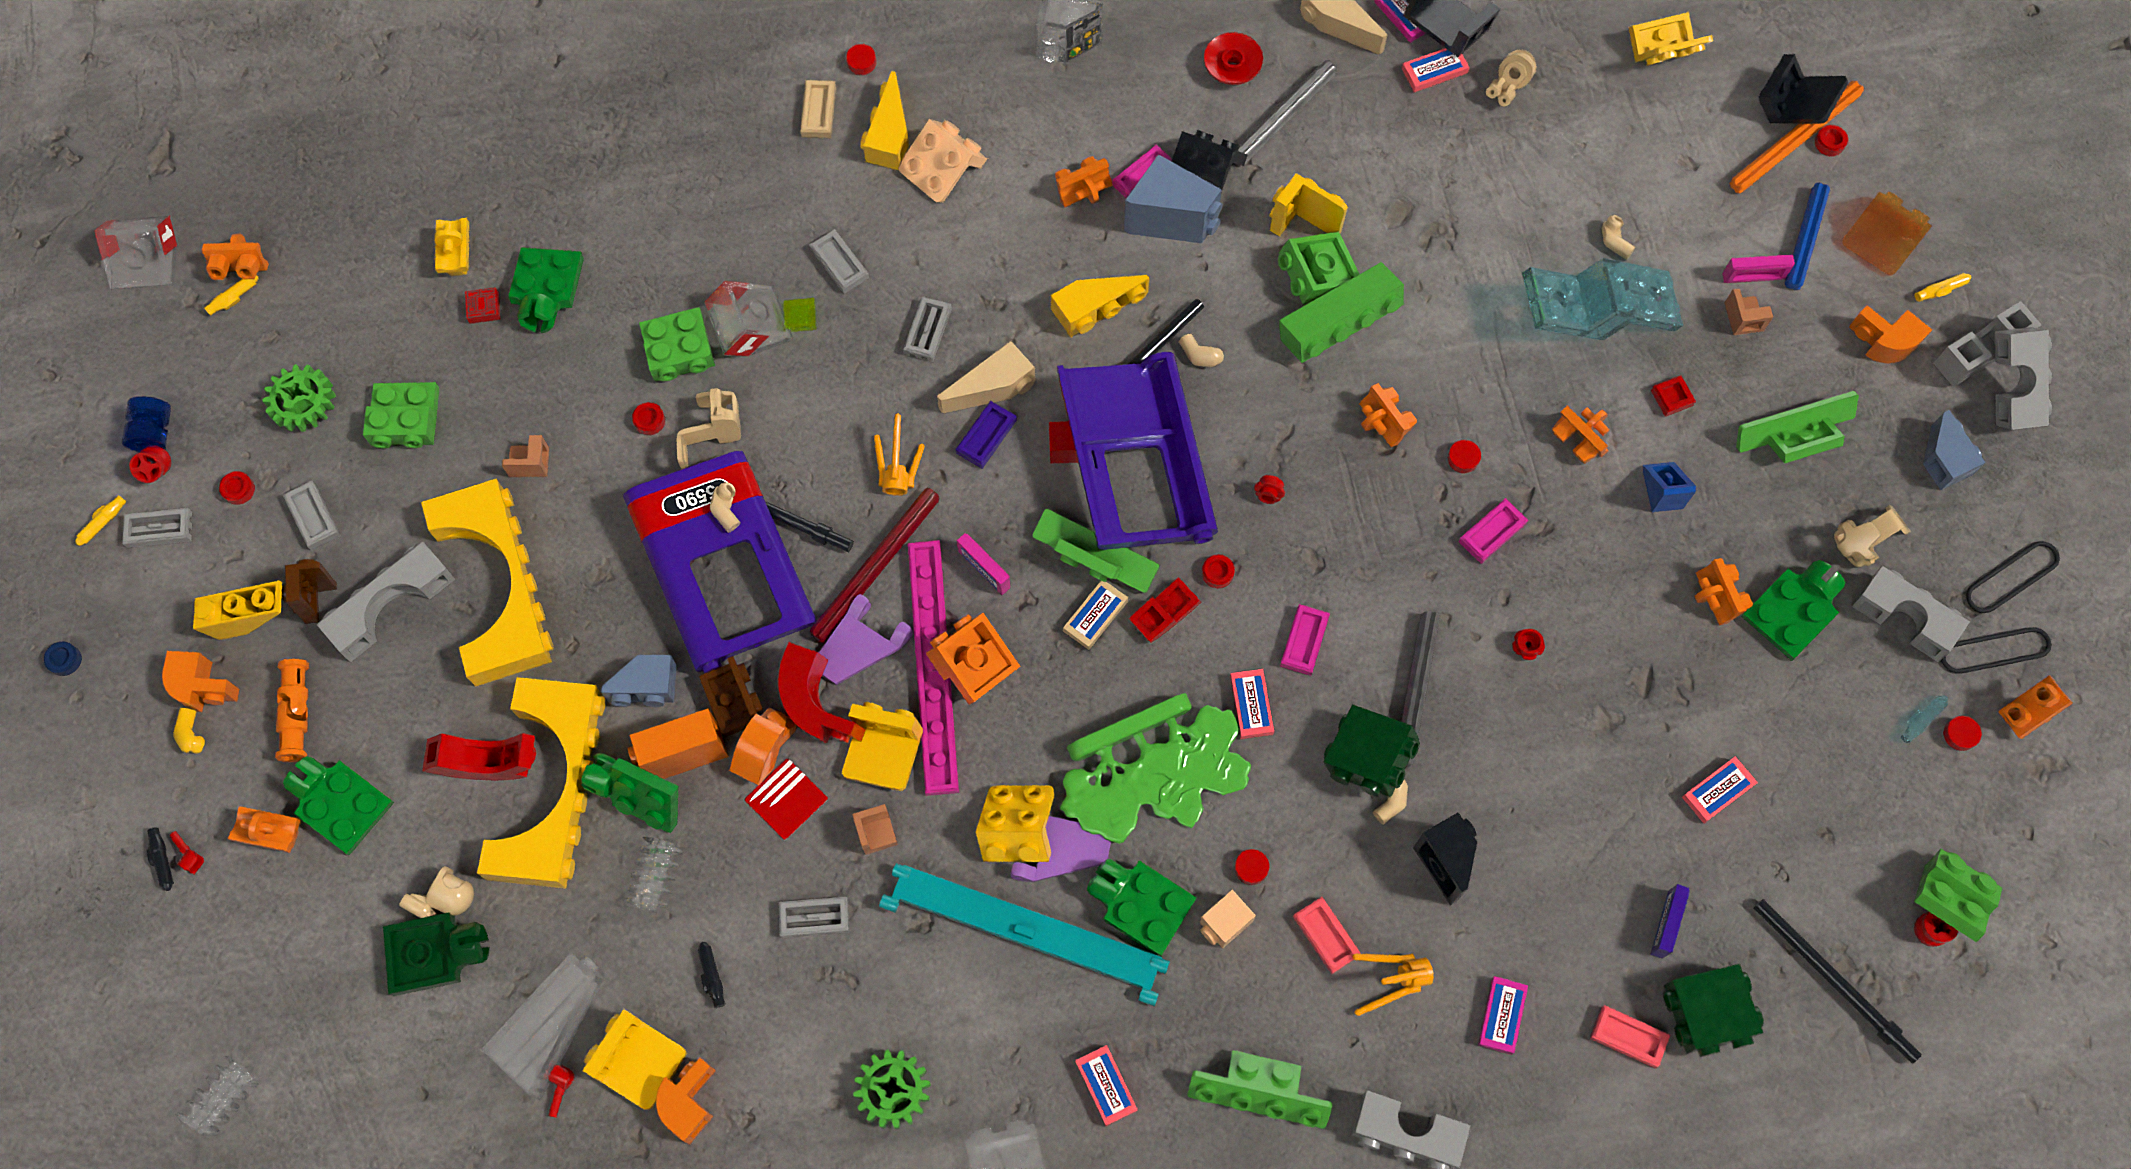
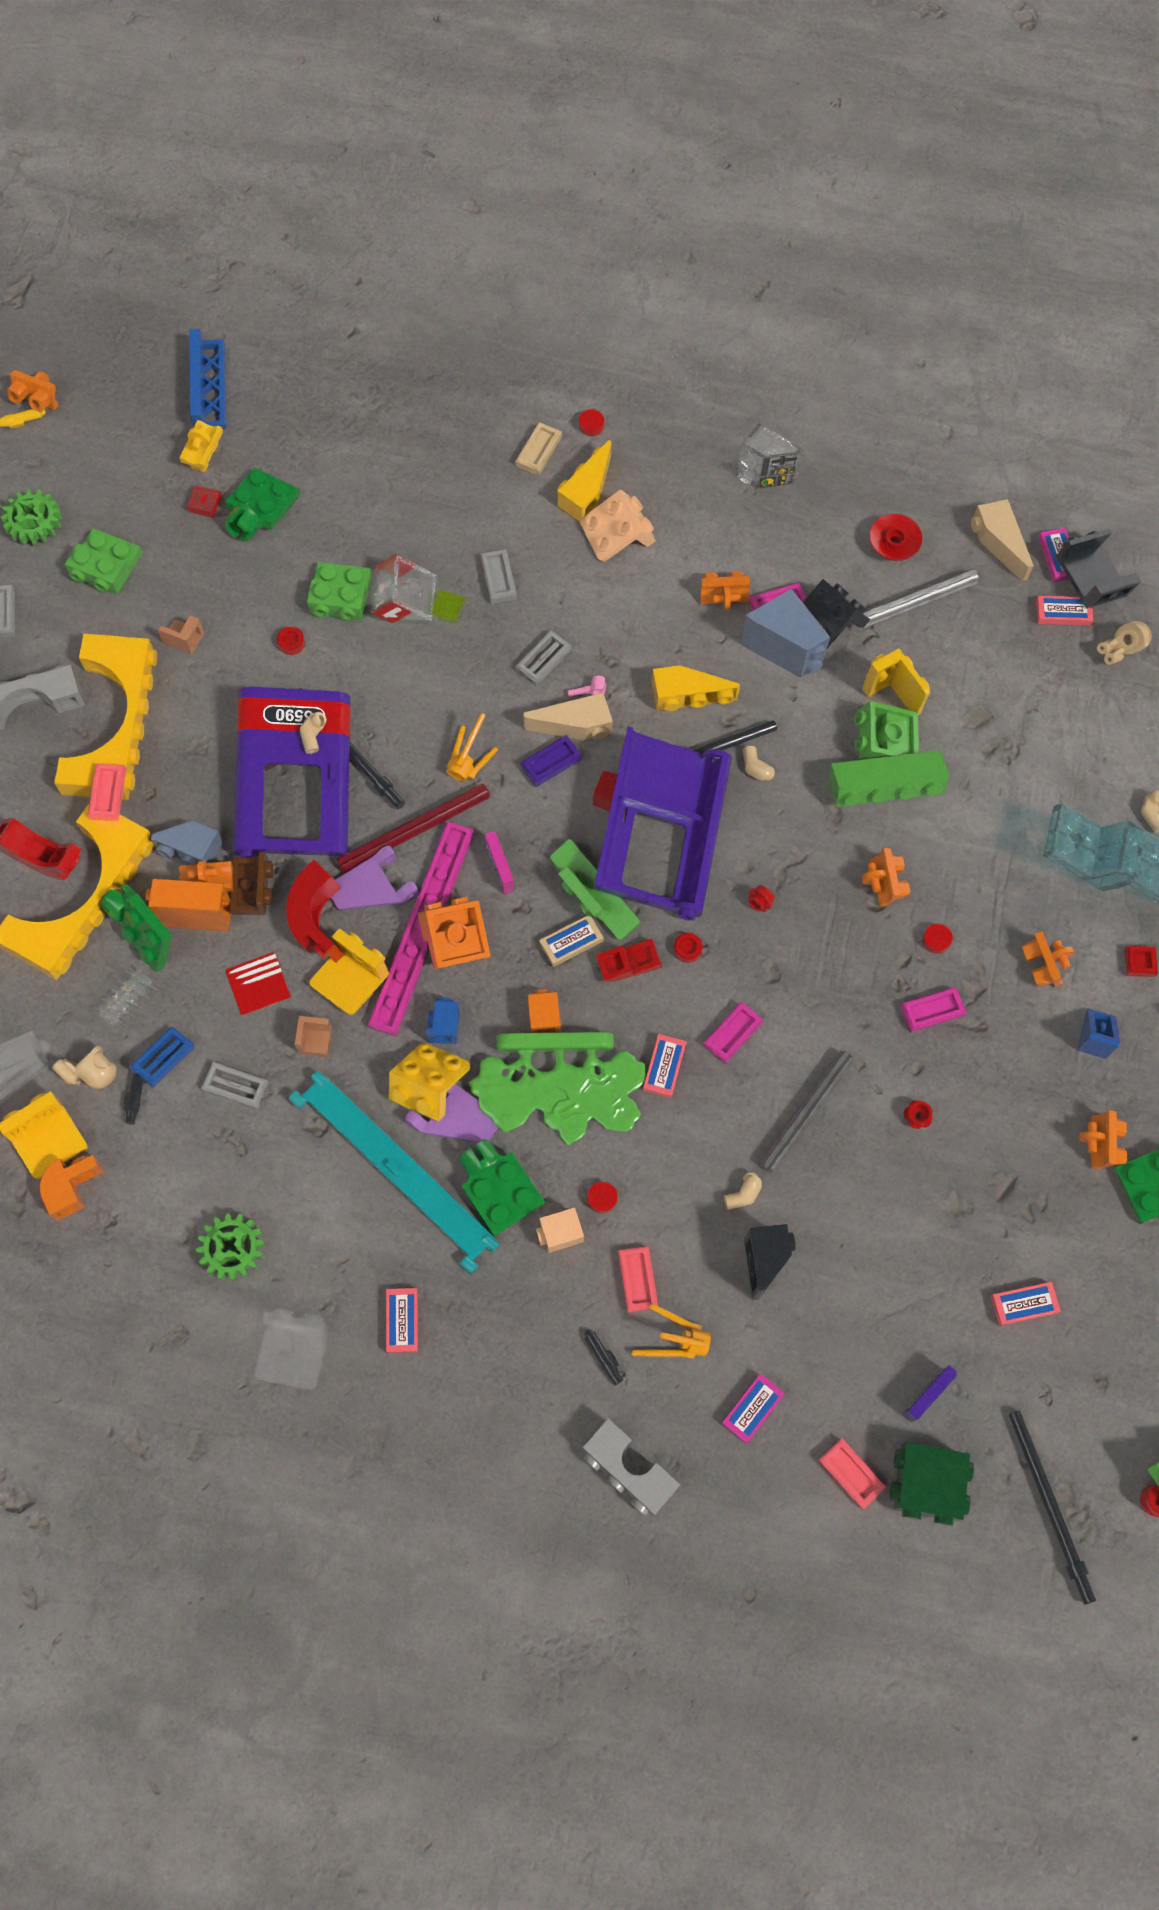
camera: 20 degrees right, 0 degrees up
(414, 175) = (198, 379): none -> blue fence
(530, 663) = (107, 792): none -> coral tile
(656, 966) = (93, 1069): none -> tan piece
(680, 704) = (209, 872): none -> orange hips
(714, 946) = (154, 1079): none -> blue tile
(723, 425) = (344, 667): tan piece -> none
(760, 745) = (254, 930): orange brick -> none
(998, 339) = (597, 686): none -> bright pink hand
(1004, 755) = (443, 1021): none -> blue brick
(1104, 701) = (544, 1012): none -> orange brick
(1262, 1088) = (526, 1378): bright green bracket -> none
(1331, 1030) = (606, 1358): none -> black piece
(1371, 751) = (742, 1145): dark green brick -> none

